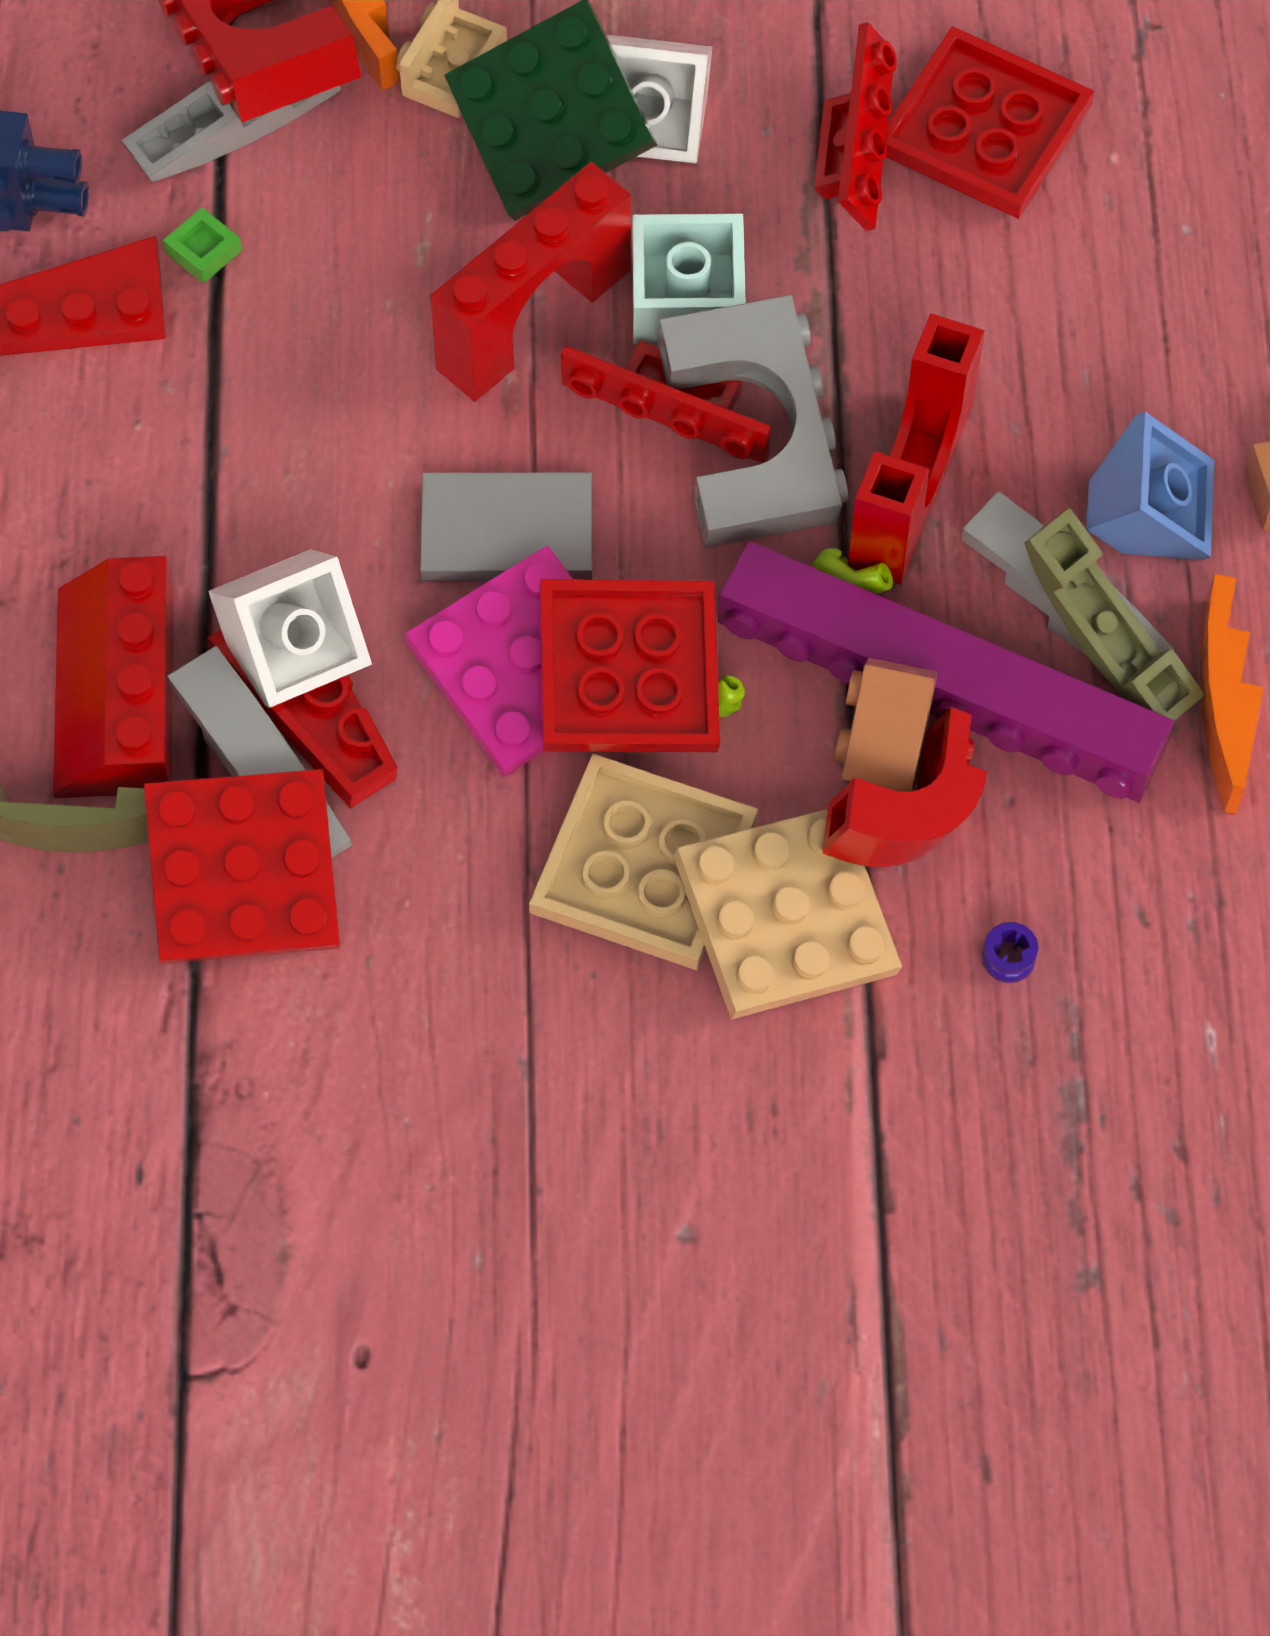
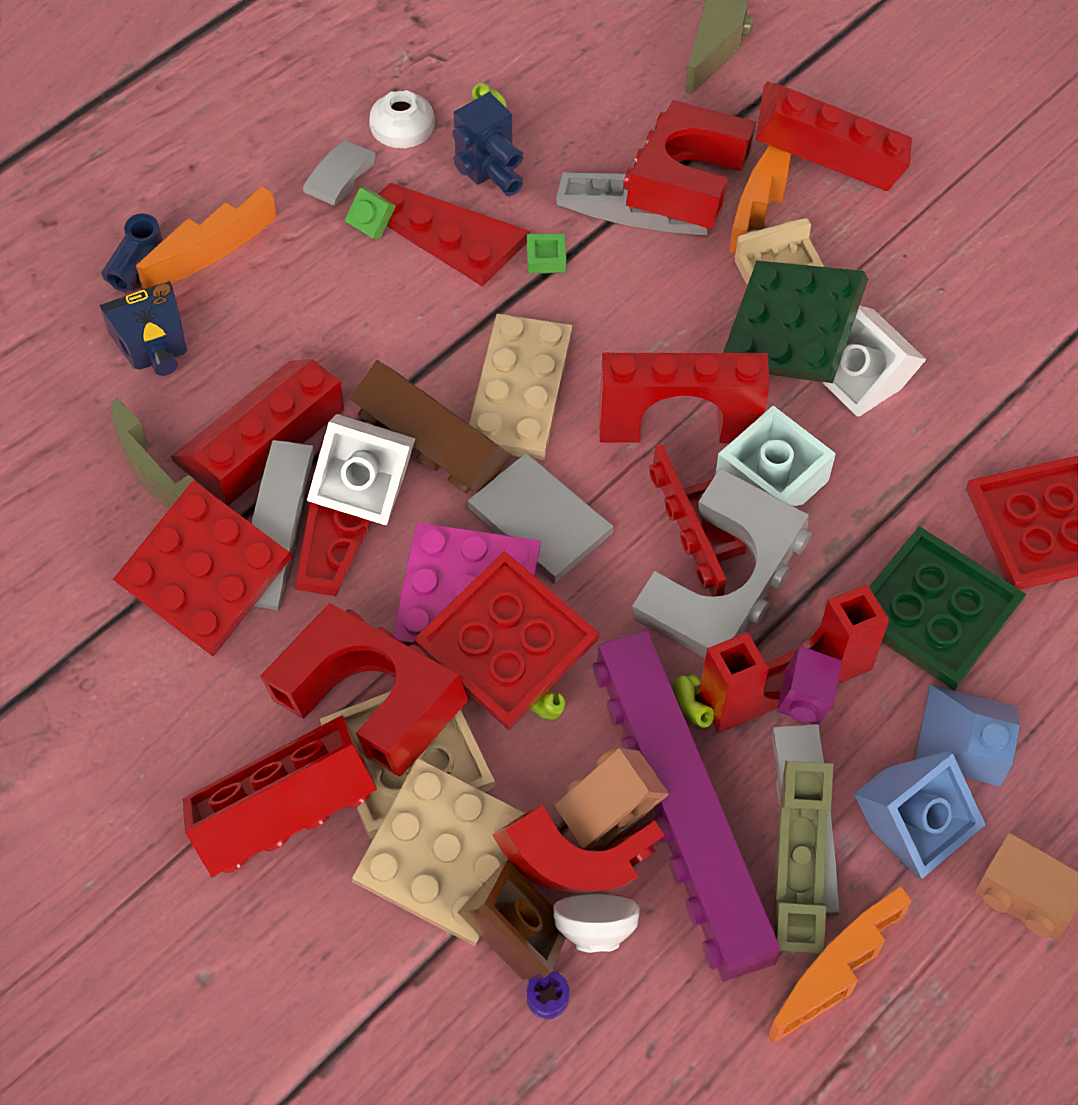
camera: 45 degrees right, 5 degrees down
(280, 525) = (437, 431): none -> reddish brown brick
(333, 411) = (521, 383): none -> tan plate
(471, 812) = (341, 645): none -> red arch
(578, 1003) = (277, 797): none -> red slope
(855, 131) = (962, 465): red bracket -> none
(926, 914) = (515, 922): none -> reddish brown slope
(960, 460) = (809, 686): none -> magenta brick
(978, 273) = (942, 606): none -> dark green plate
(989, 844) = (596, 920): none -> white piece
(1117, 380) = (972, 728): none -> medium blue slope

